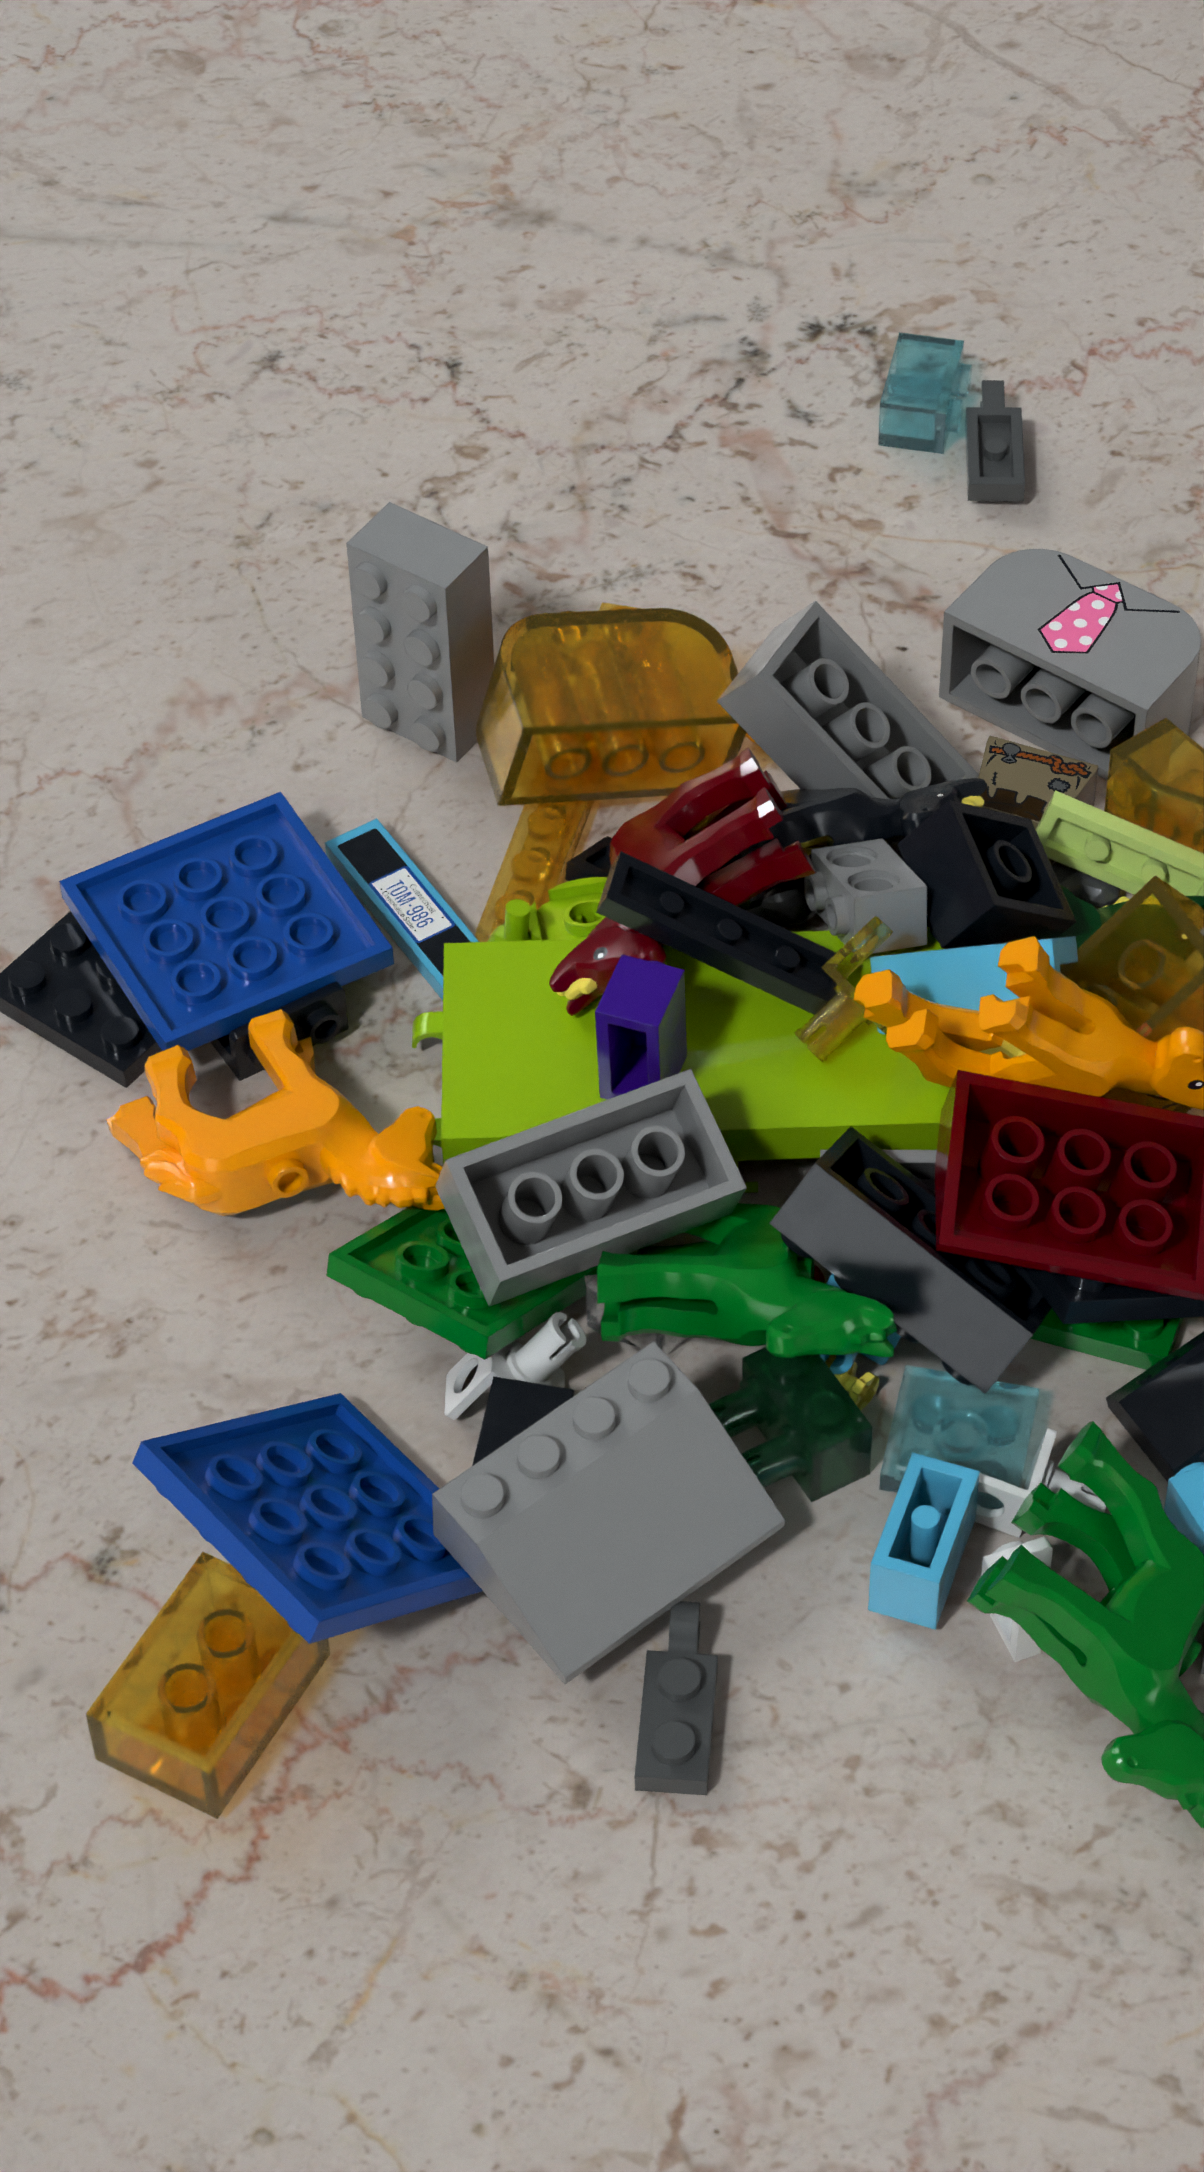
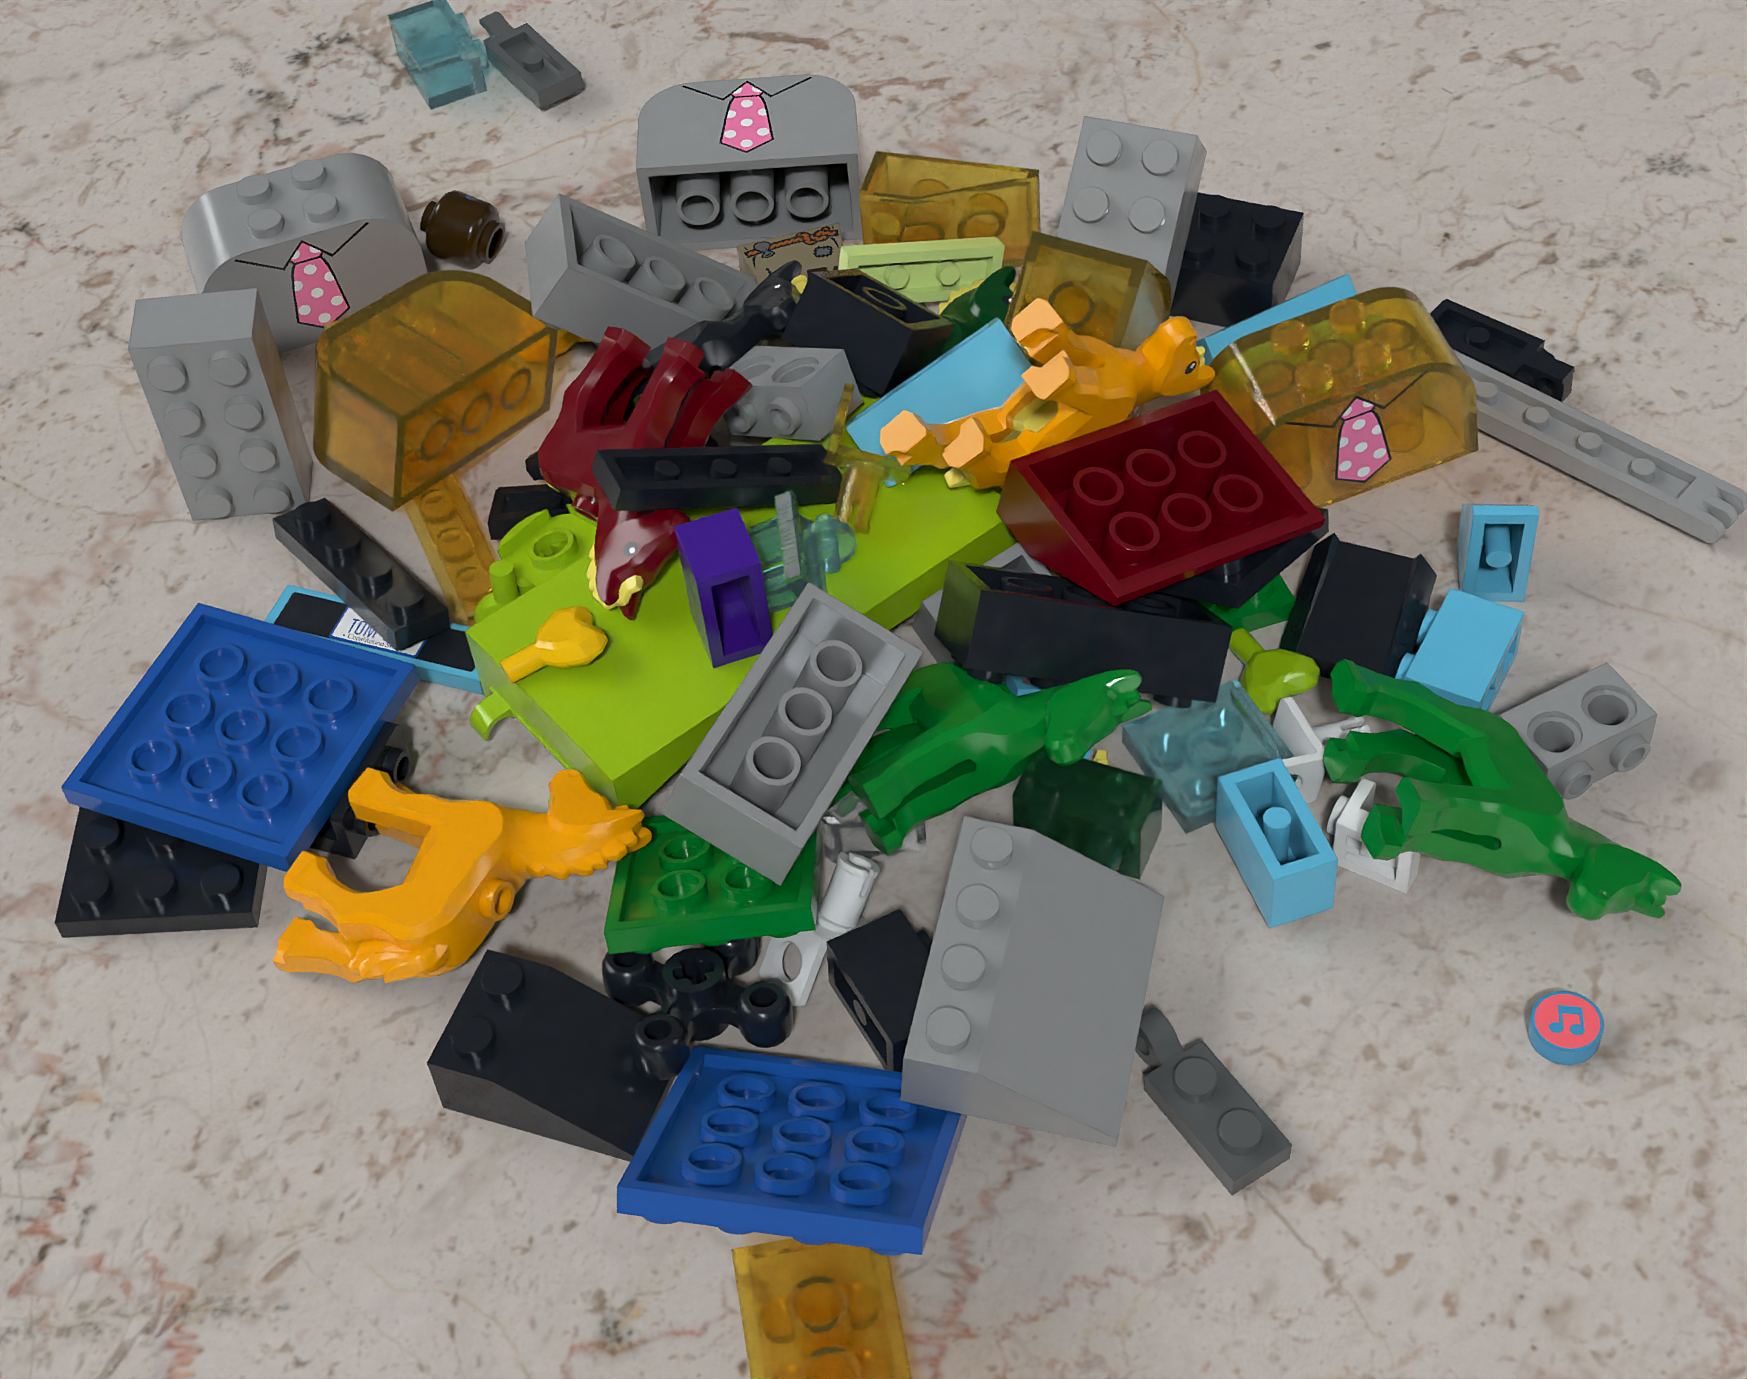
camera: 35 degrees left, 0 degrees up
(231, 1323) = (546, 1058): none -> black slope
(368, 1359) = (695, 1002): none -> black gear
(437, 844) = (361, 574): none -> black plate
(498, 1001) = (561, 642): none -> yellow rock
(624, 527) = (310, 240): none -> light grey brick
(744, 1044) = (803, 546): none -> clear light blue hips
(787, 578) = (462, 230): none -> dark brown head
(1022, 1853) = (1565, 1027): none -> tile
(1083, 1402) = (1272, 673): none -> lime rock

